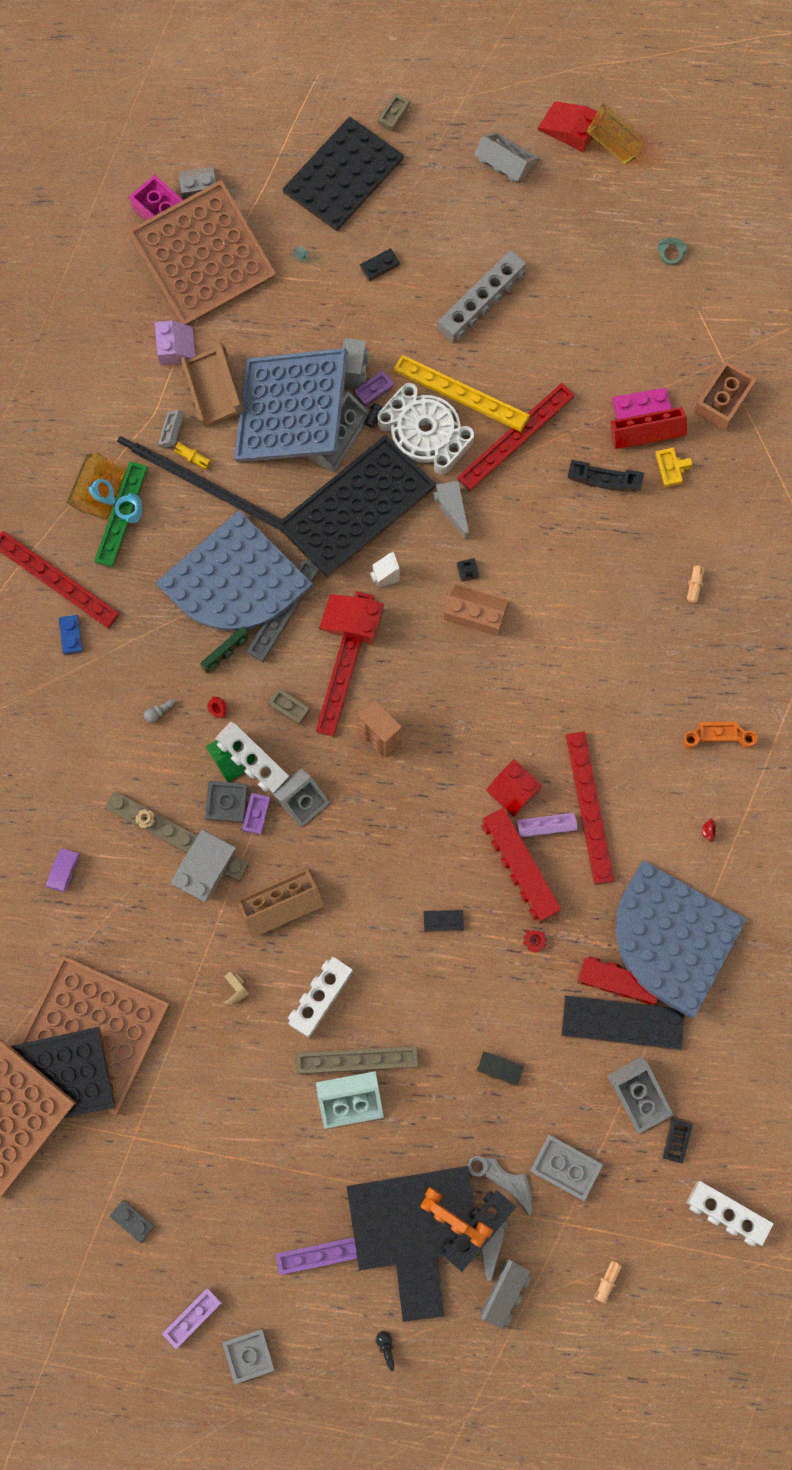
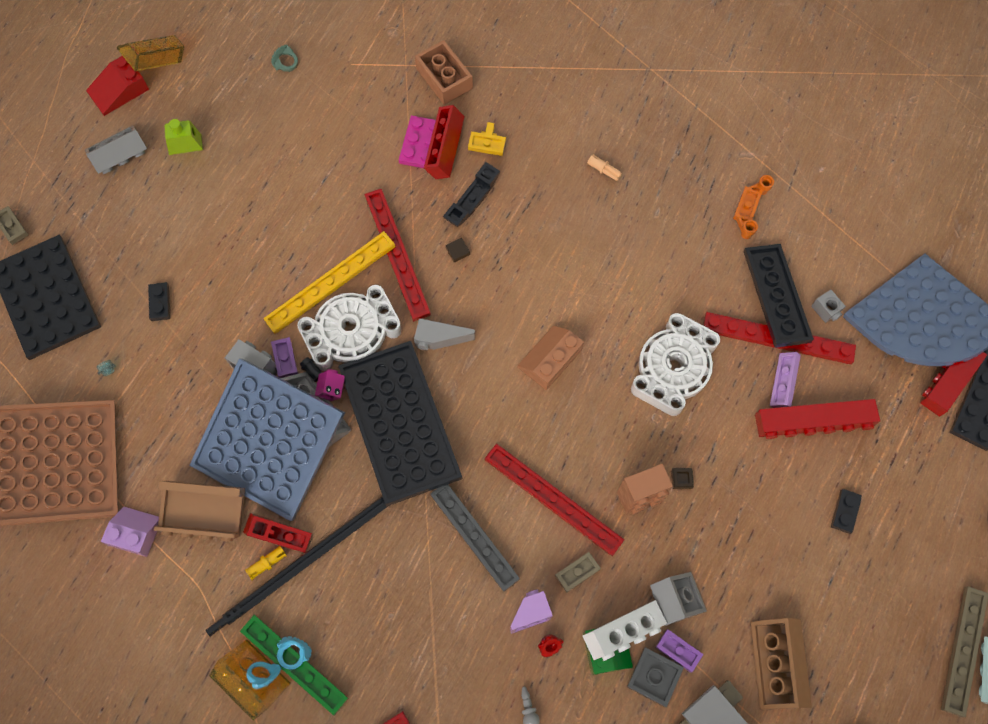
camera: 70 degrees left, 5 degrees down
(171, 428) = (225, 573): light grey plate -> none
(219, 452) = (277, 533): none -> red slope
(225, 650) = (493, 613): dark green plate -> none
(234, 579) = (420, 573): sand blue plate -> none
(237, 677) = (532, 611): none -> lavender slope
(308, 1025) = (918, 686): white brick -> none
(352, 617) = (513, 471): red slope -> none
(363, 435) = (329, 385): none -> dark pink brick
(386, 571) = (479, 420): white slope -> none
(411, 766) = (682, 478): none -> dark brown tile
(467, 569) = (507, 348): black tile -> none
(508, 264) = (258, 265): light grey brick -> none
(514, 788) = (739, 393): red slope -> none
(522, 702) = (677, 345): none -> white piece
(539, 940) = (893, 435): red animal -> none
(540, 201) = (182, 137): none -> lime torso
(545, 488) = (457, 250): none -> dark brown tile
(630, 788) = (778, 295): none -> black plate
(645, 834) = (828, 299): none -> light grey brick
(709, 830) = (835, 249): red animal -> none

